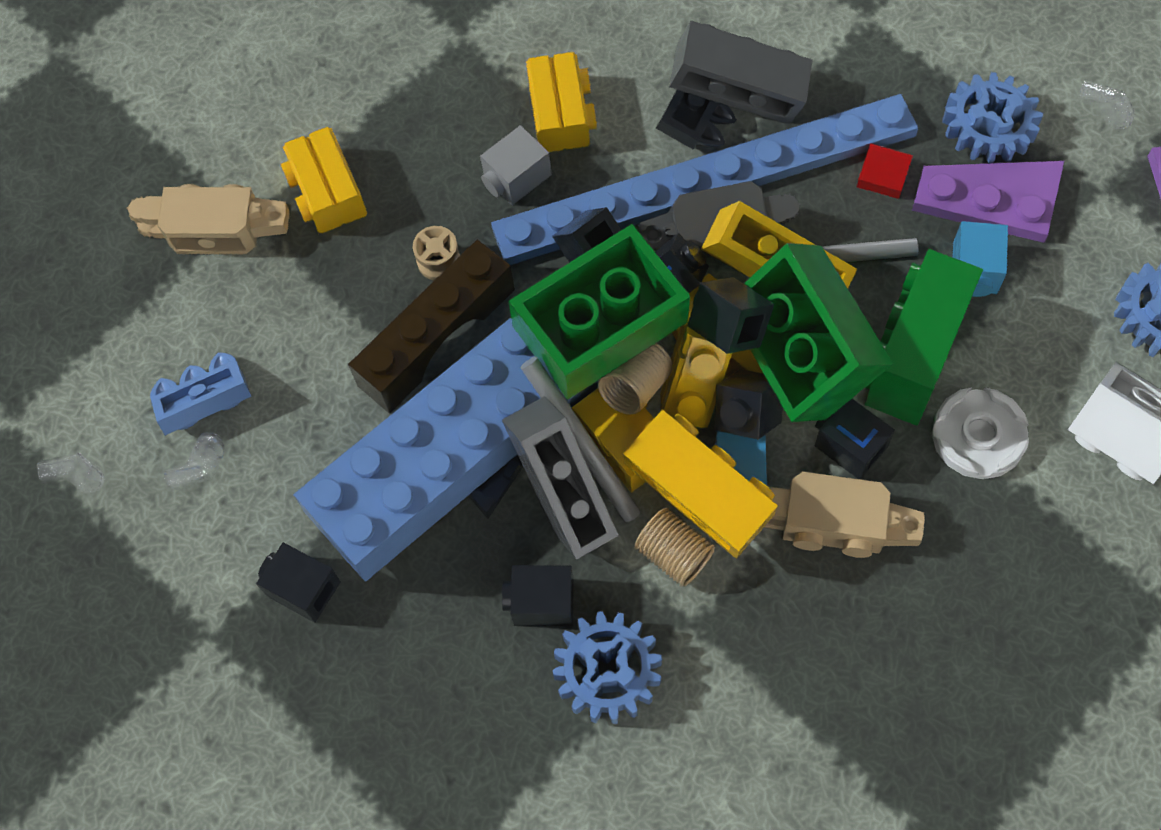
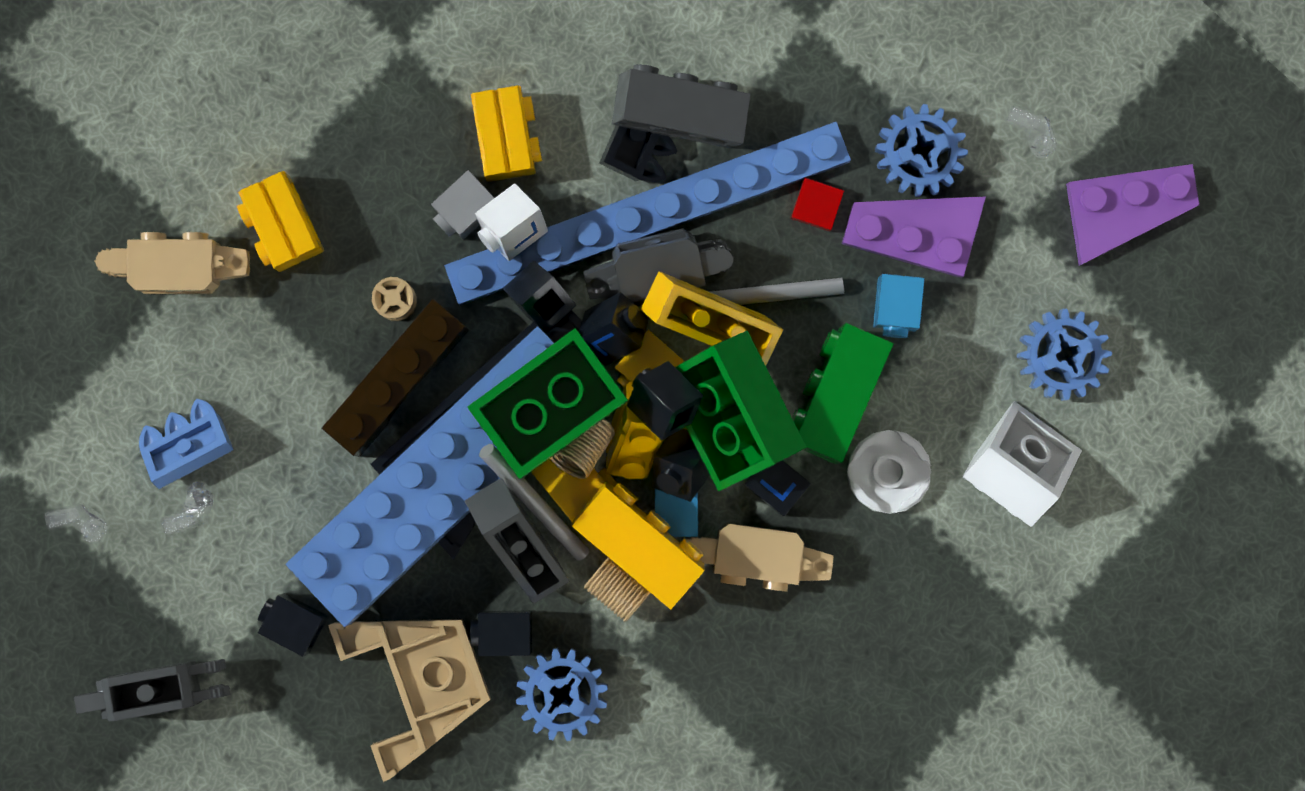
camera: 10 degrees left, 20 degrees up
(128, 650) = (152, 690): none -> dark grey hinge
(457, 648) = (433, 674): none -> tan wing
(563, 174) = (510, 223): none -> white brick

